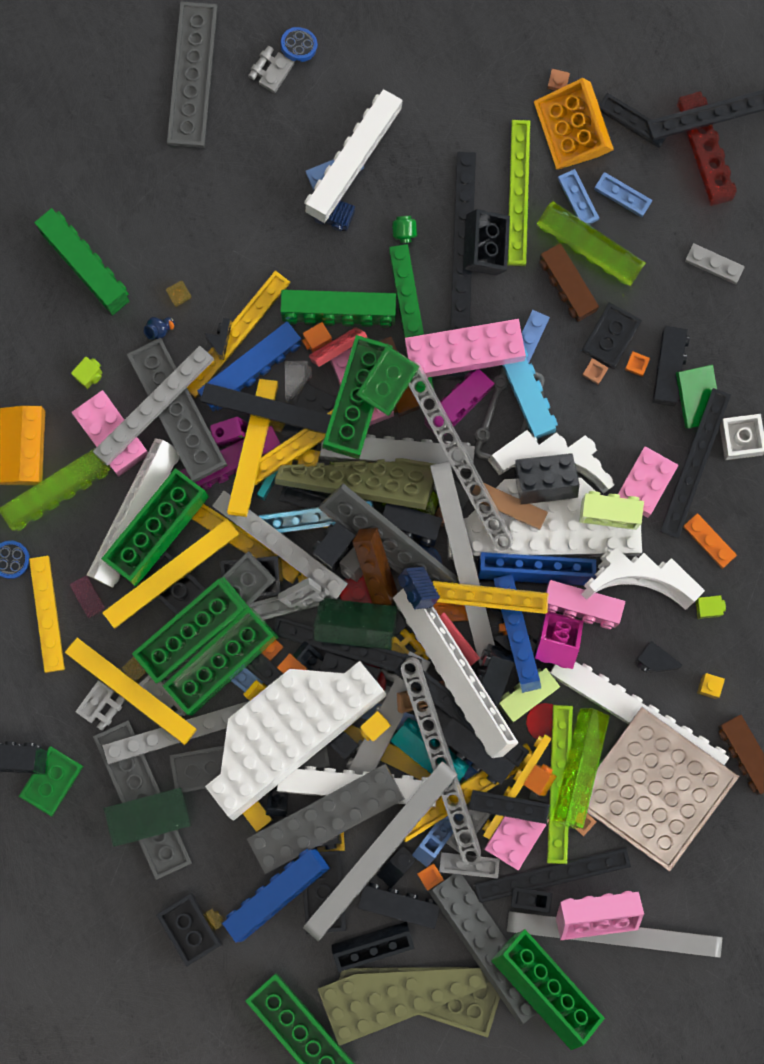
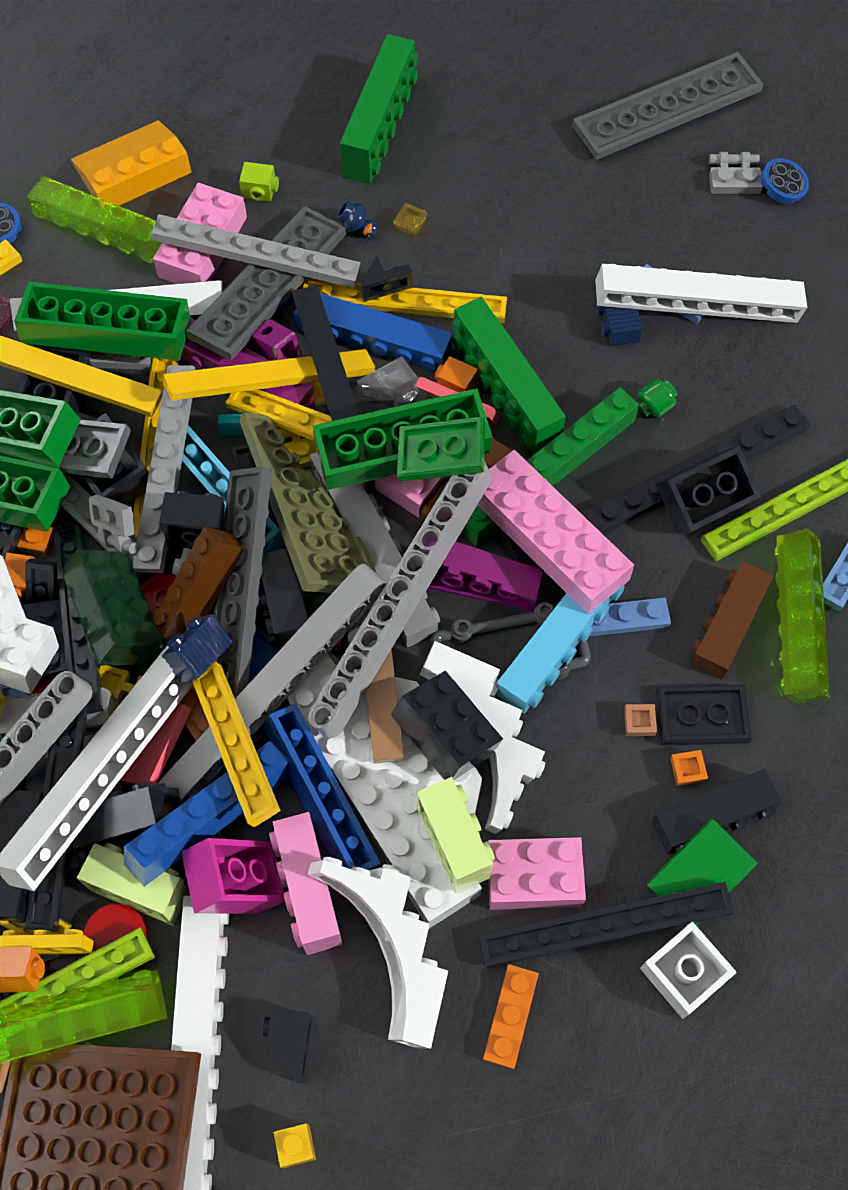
camera: 60 degrees right, 15 degrees down
(710, 607) = (413, 1074): lime brick -> none

